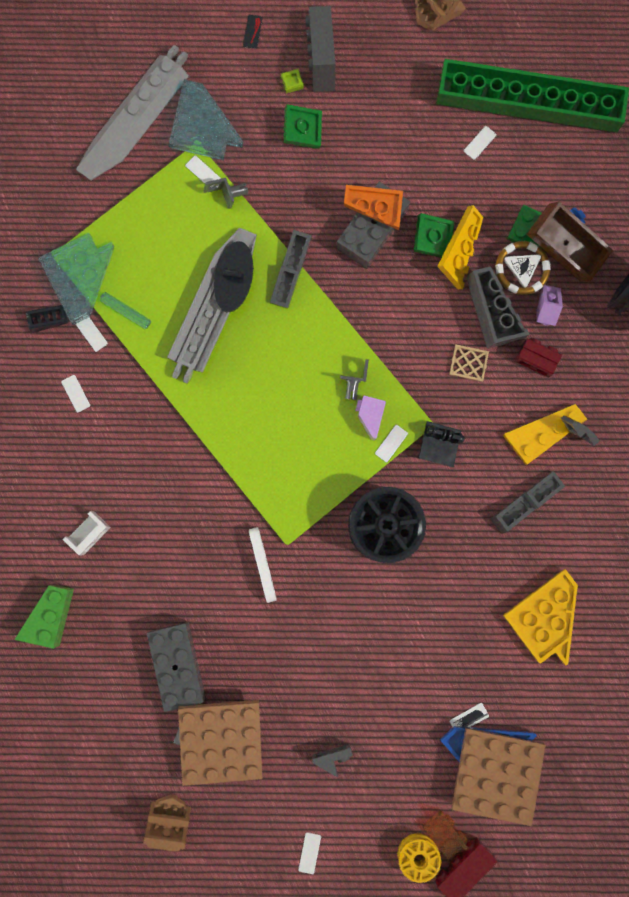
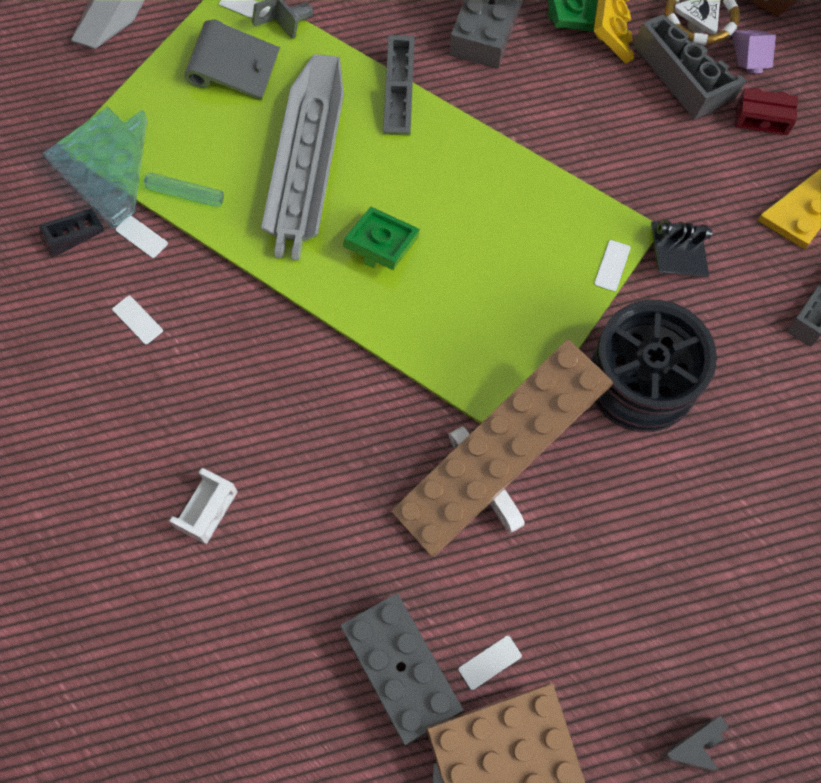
camera: 15 degrees left, 15 degrees down
(48, 618) = (173, 651): bright green wedge -> none
(179, 217) = (231, 60): none -> dark grey door
(231, 674) = (490, 662): none -> white sticker
(233, 276) = (325, 107): black shield -> none
(244, 385) = (381, 238): none -> green hinge
(275, 552) = (501, 447): none -> medium nougat plate
(352, 383) = (532, 195): dark grey bracket -> none
(370, 414) = (572, 232): lavender slope -> none
(471, 350) = (676, 128): tan window -> none

